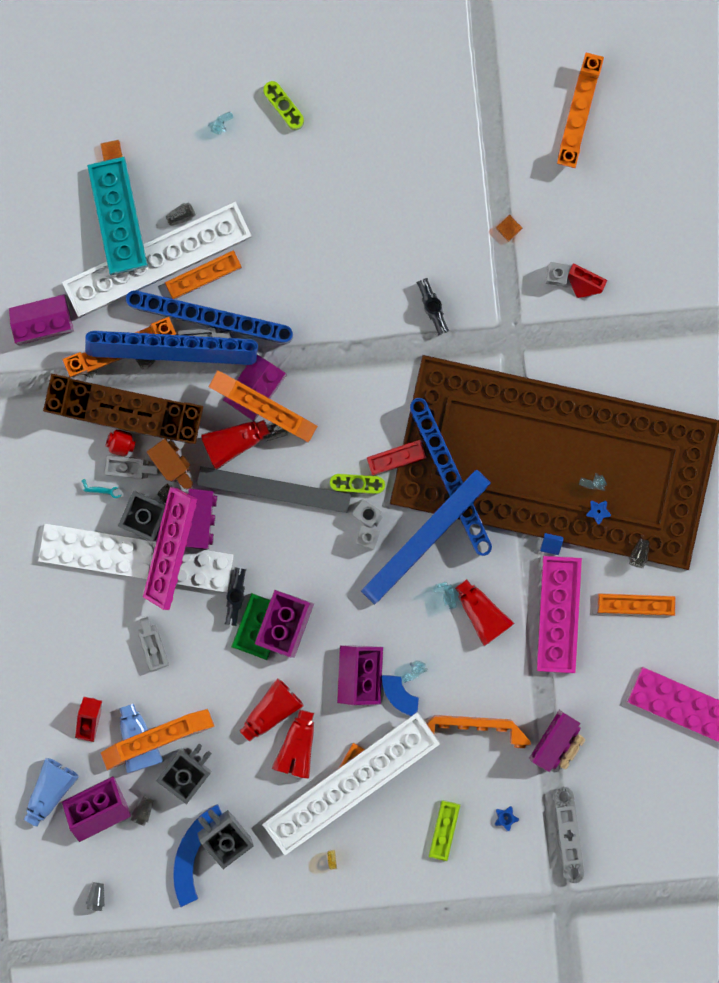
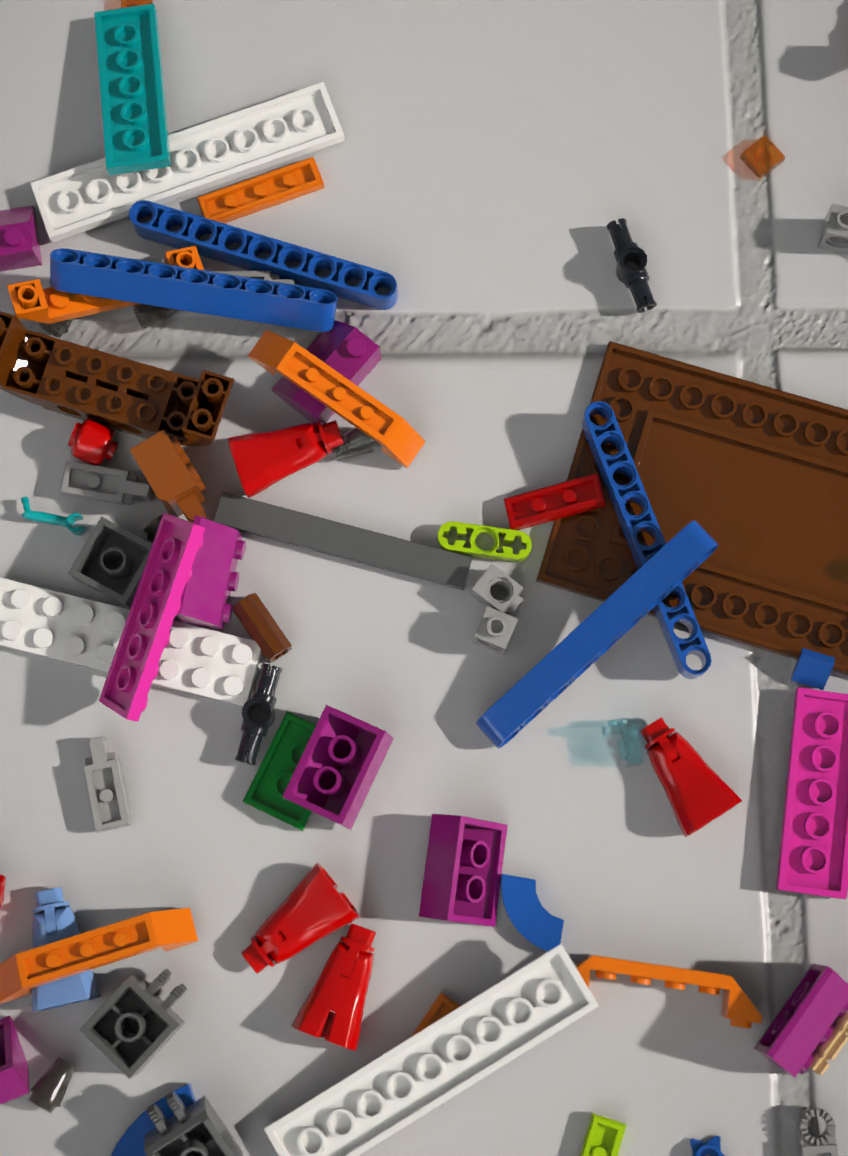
camera: 10 degrees right, 10 degrees down
(181, 214) = (235, 96): clear smoke cone -> none
(232, 546) = (262, 627): none -> reddish brown axle
(417, 668) = (565, 867): clear light blue plate -> none

